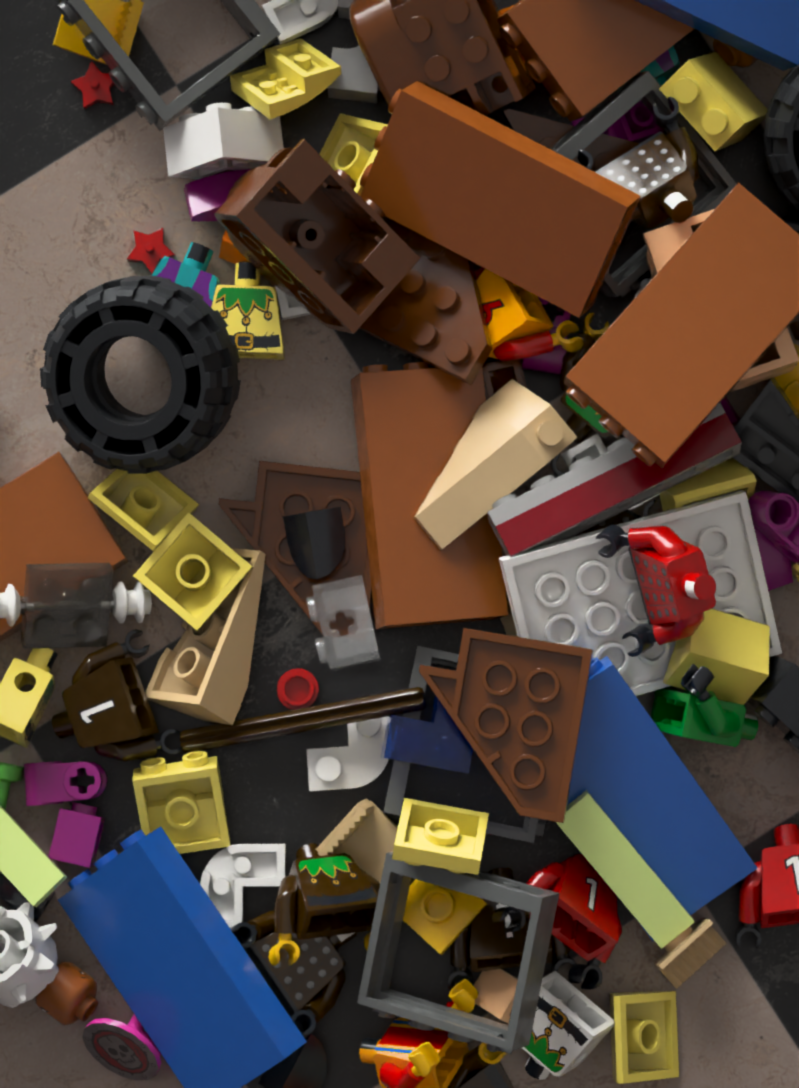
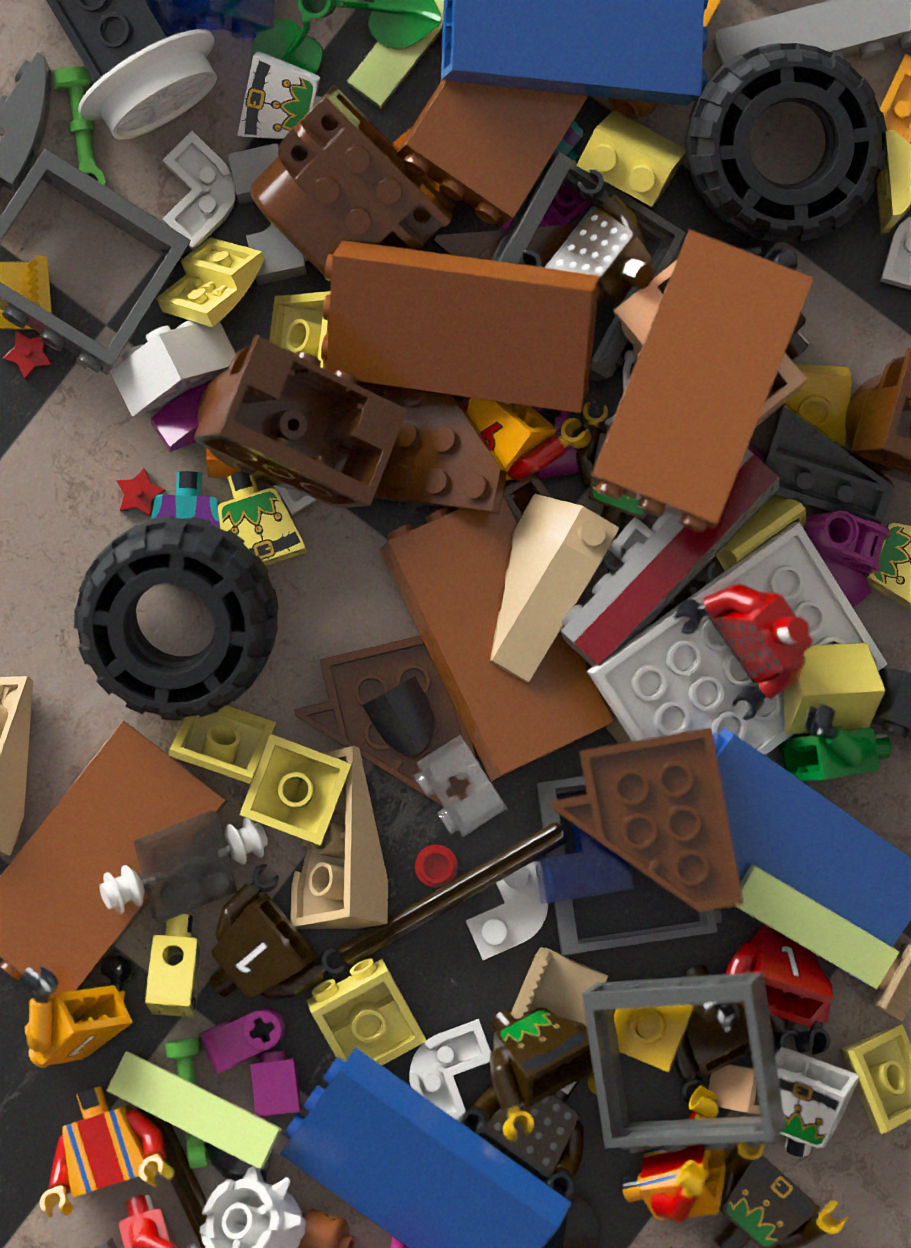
camera: 25 degrees left, 0 degrees up
(440, 836) = (629, 959): light yellow plate -> none

